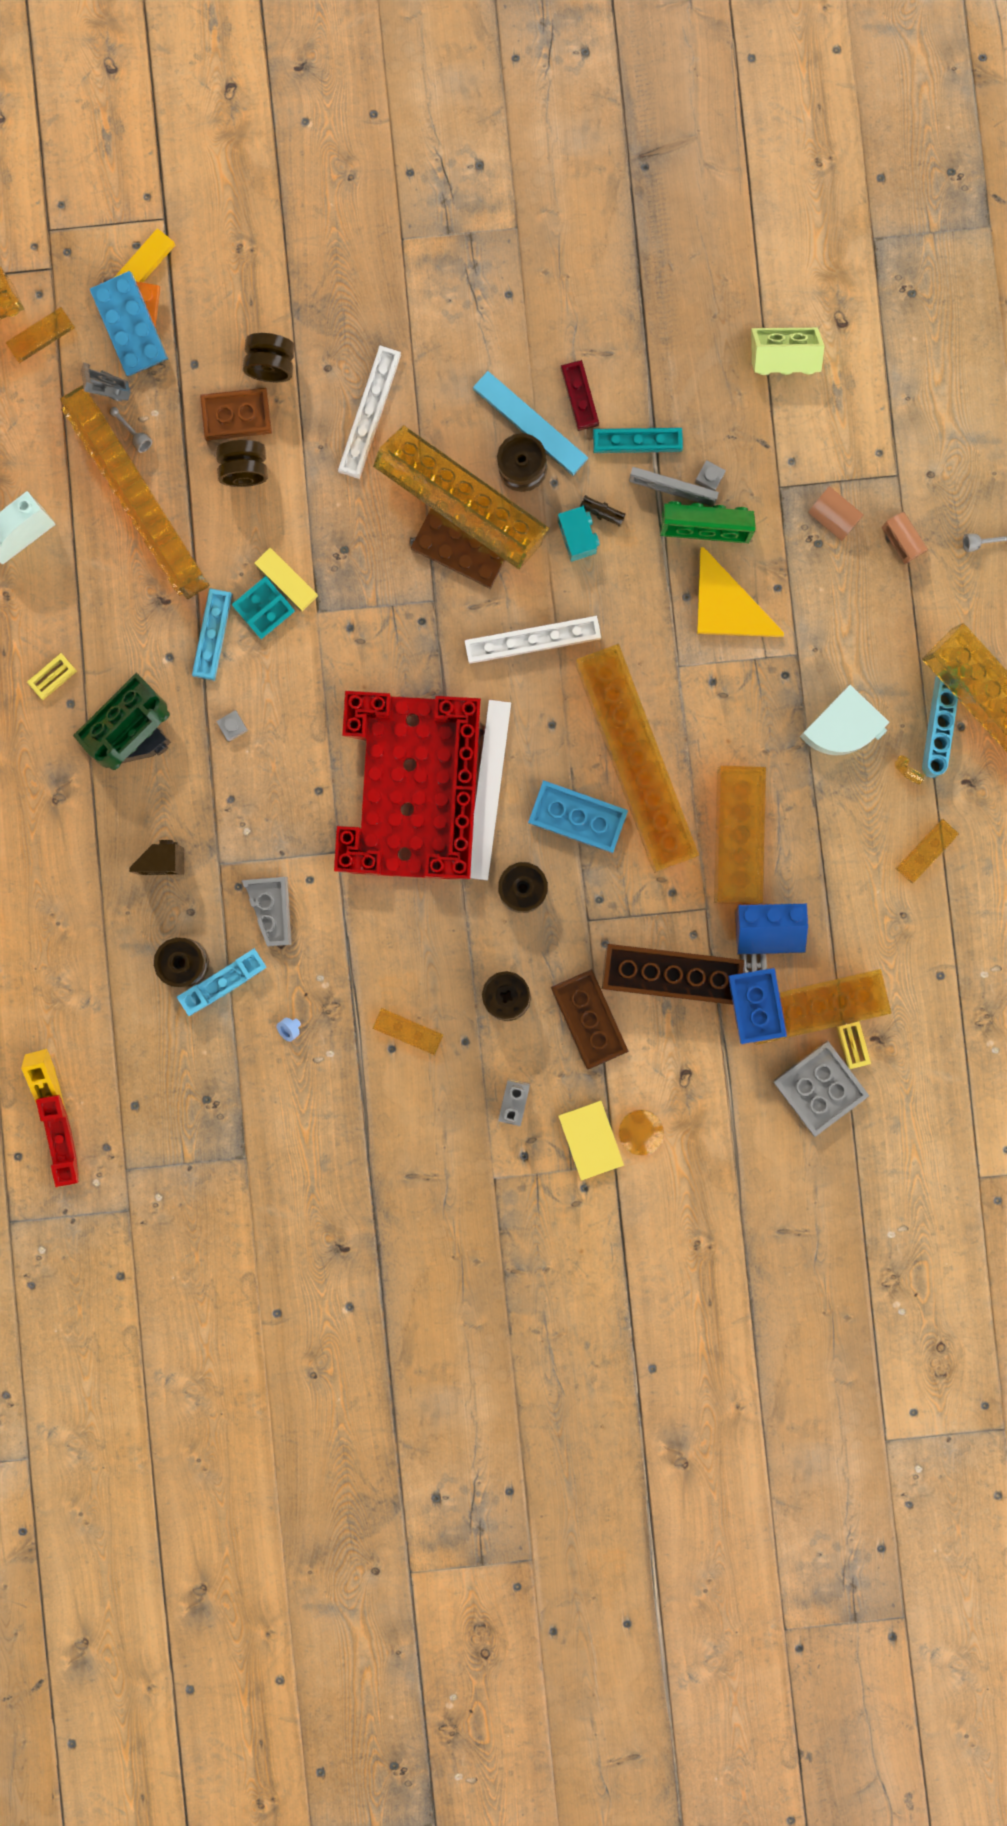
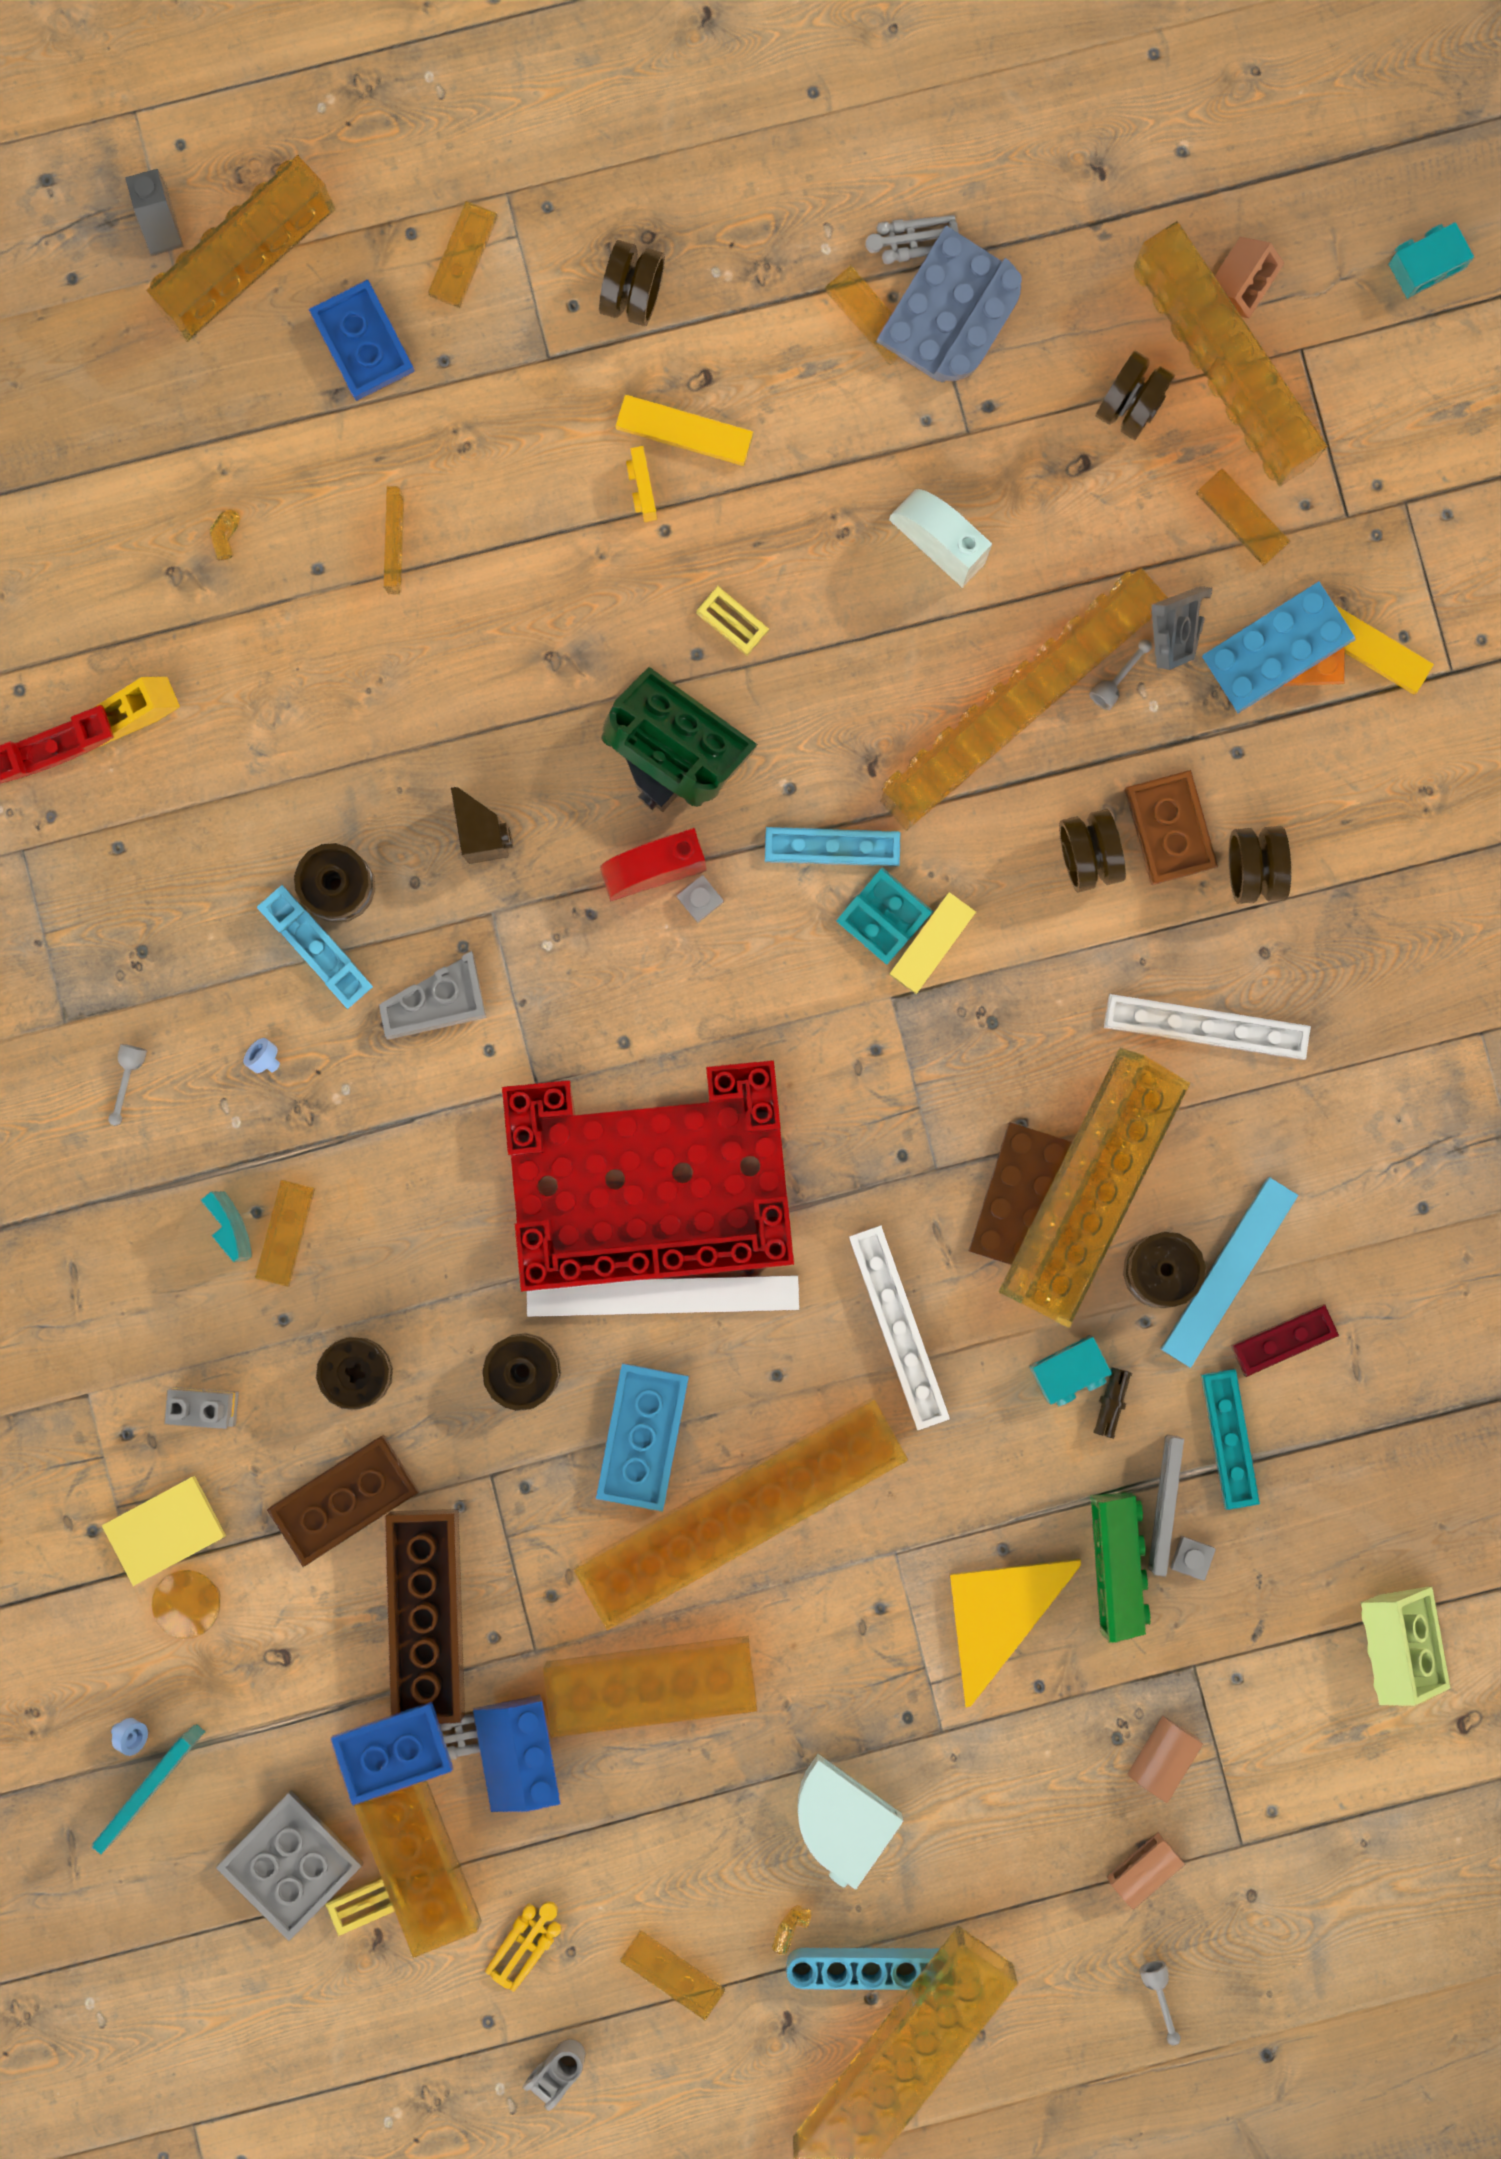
camera: 80 degrees right, 0 degrees up
(203, 749) = (653, 864): none -> red brick
(276, 1116) = (130, 1059): none -> light grey hinge
(401, 1064) = (233, 1233): none -> teal slope
(721, 1182) = (129, 1736): none -> light blue tile
(757, 1172) = (148, 1788): none -> teal tile
(875, 924) = (547, 1913): none -> yellow piece
(982, 938) = (552, 2077): none -> light grey piece

